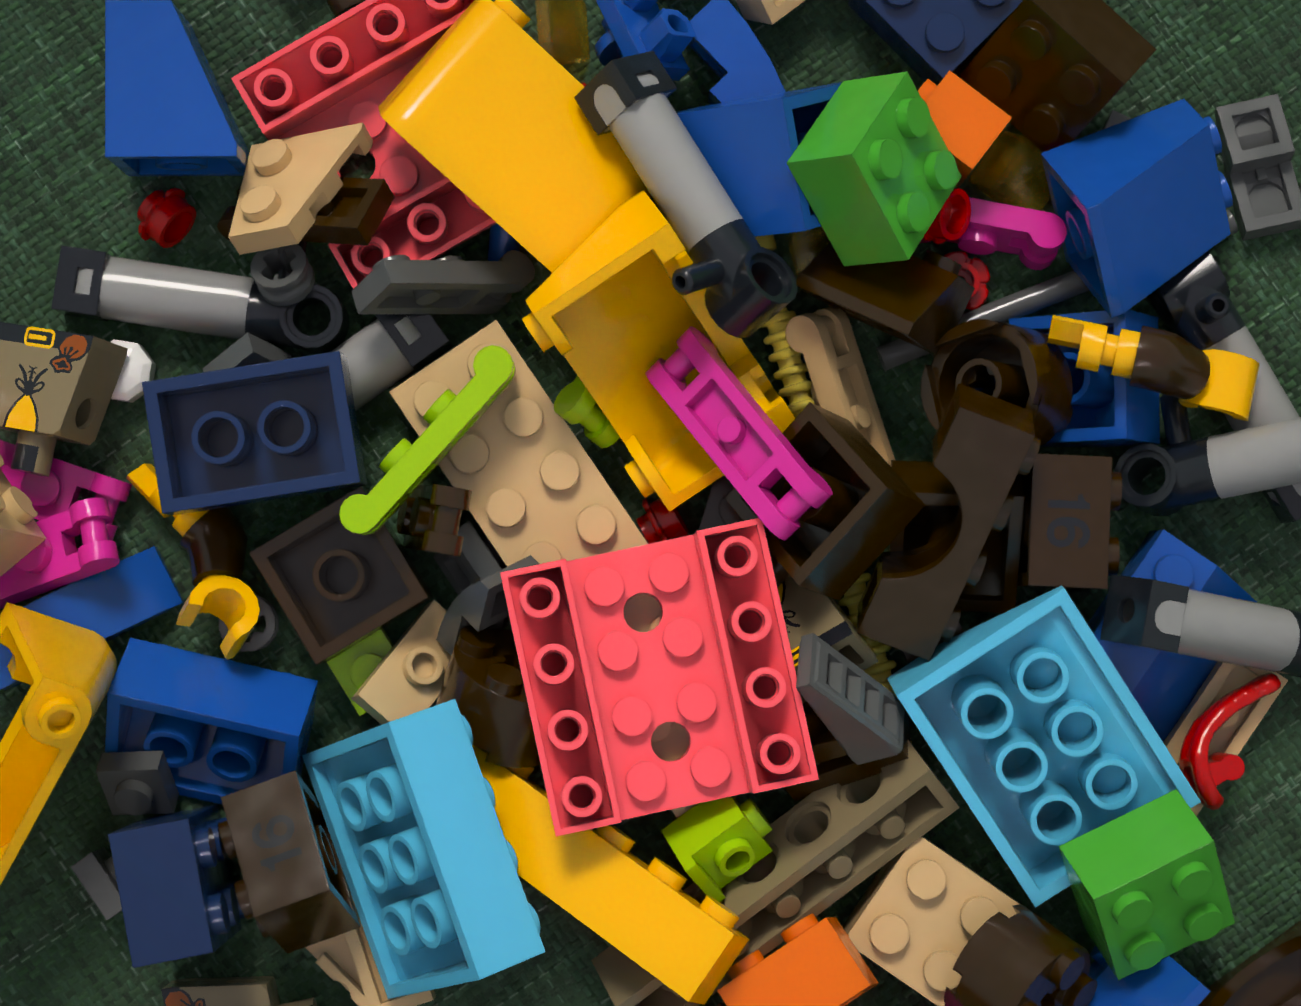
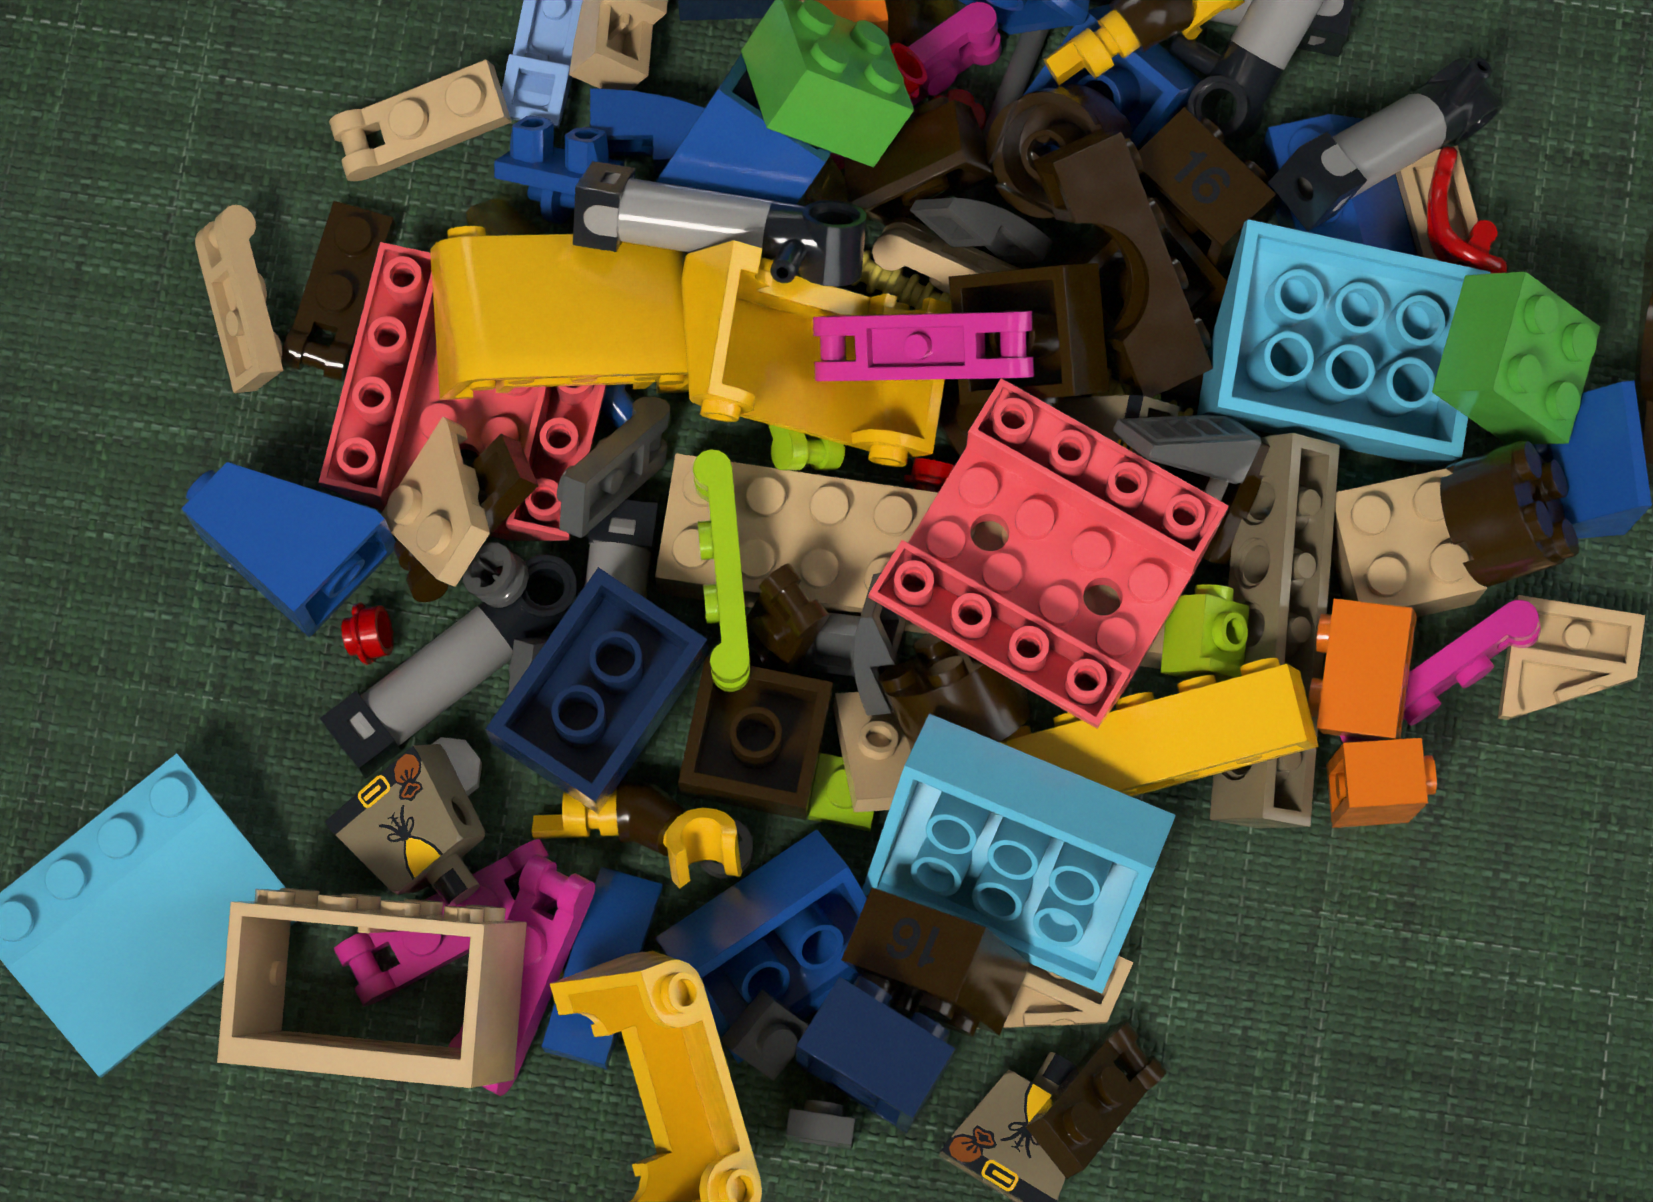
camera: 45 degrees left, 10 degrees down
(884, 386) = (978, 223): none -> dark grey slope

